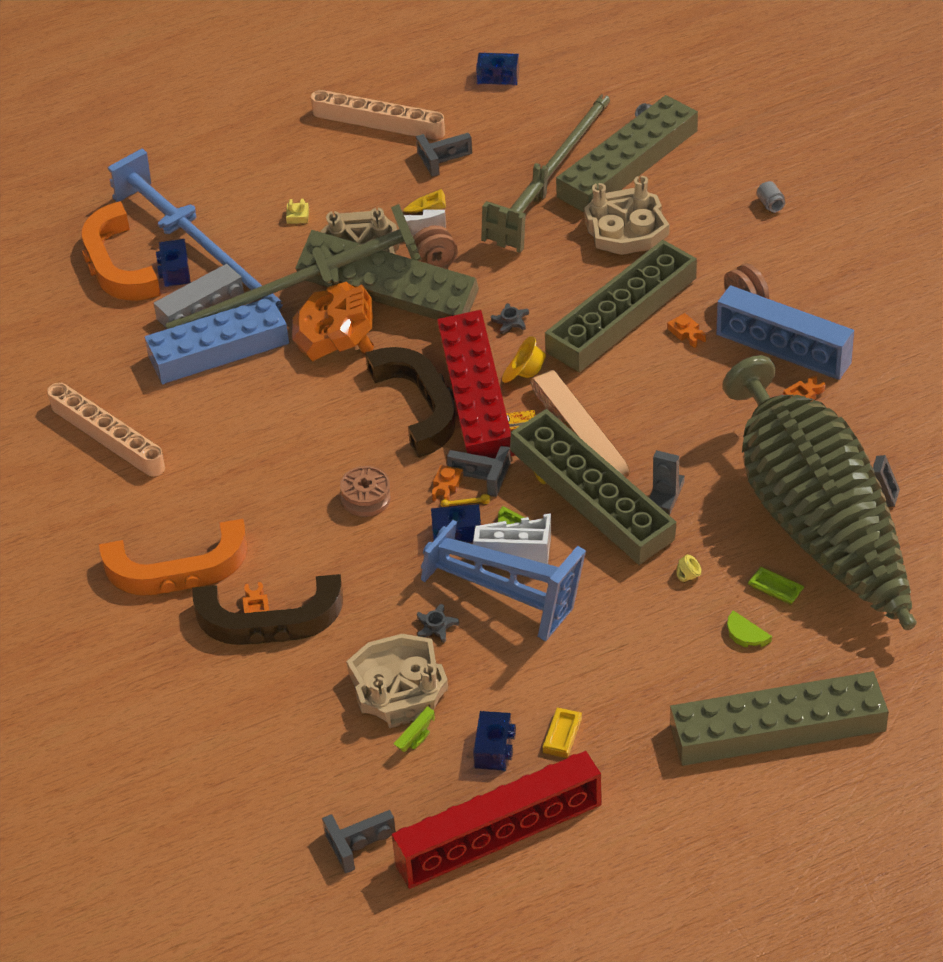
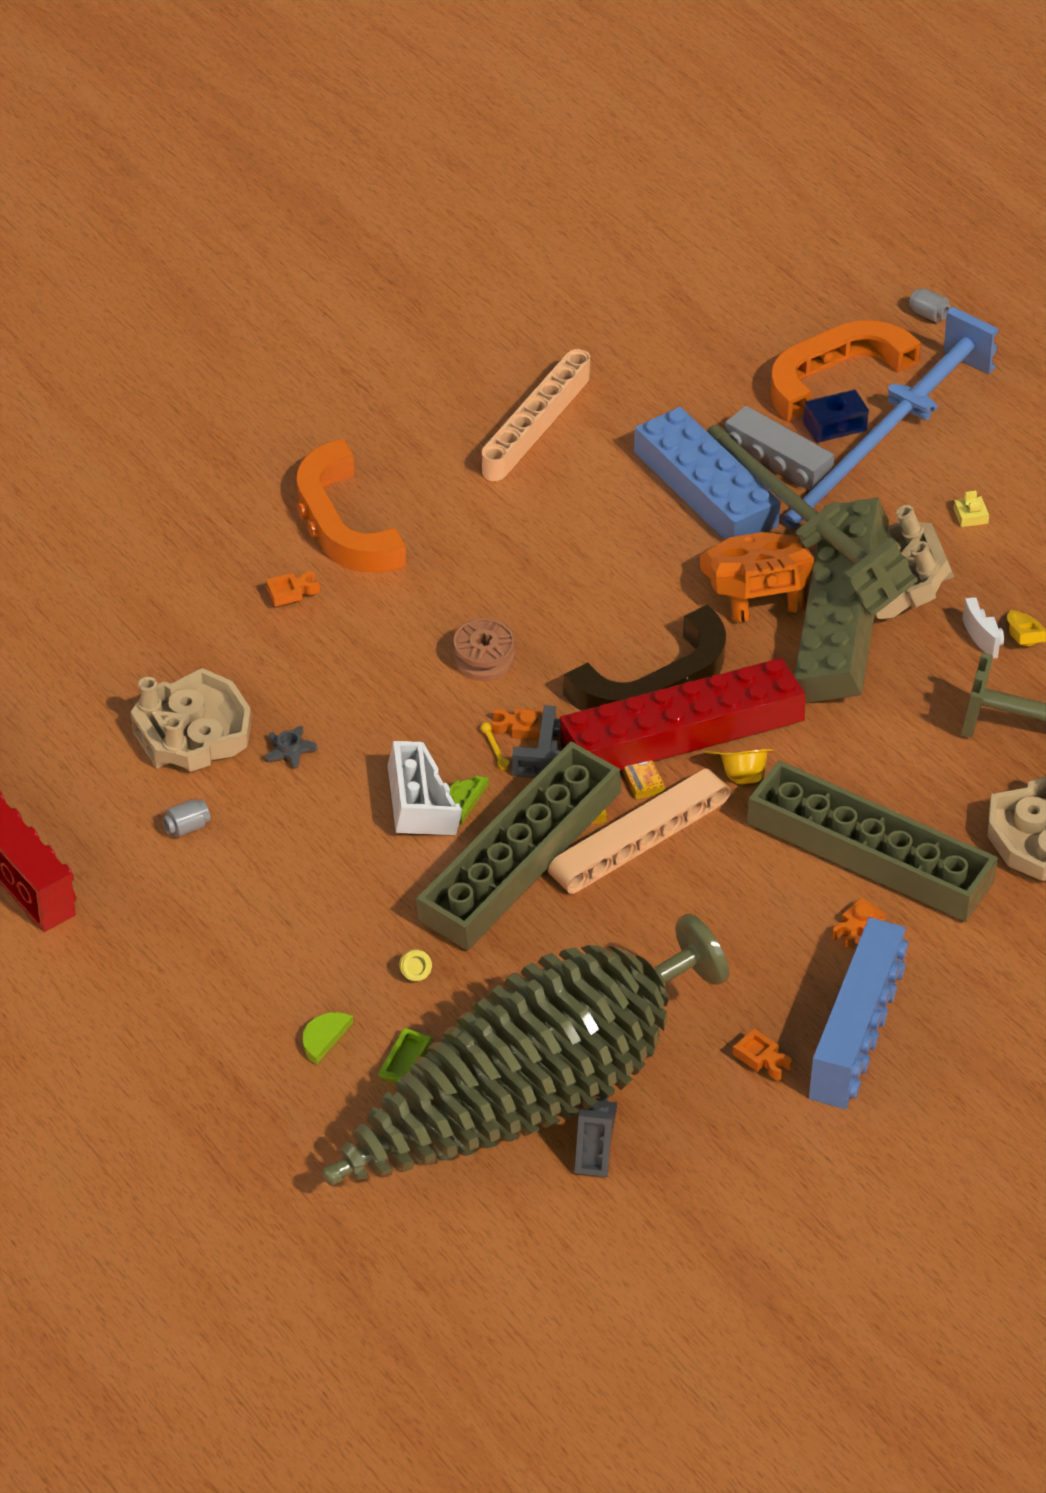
camera: 75 degrees right, 0 degrees up
(70, 196) = (929, 305): none -> light grey brick
(269, 625) = (280, 640): dark brown arch -> none
(416, 732) = (117, 749): lime tile -> none
(436, 246) = (917, 636): nougat wheel -> none
(466, 517) = (445, 737): clear blue brick -> none
(493, 740) = (114, 816): clear blue brick -> none
(504, 693) = (186, 817): none -> light grey brick
(510, 318) = (828, 740): dark grey animal -> none
(561, 580) = (310, 811): medium blue piece -> none
(562, 732) = (141, 881): yellow tile -> none
(666, 480) = (544, 927): dark grey bracket -> none
(748, 279) = (934, 962): nougat wheel -> none
(778, 718) = (179, 1074): olive brick -> none

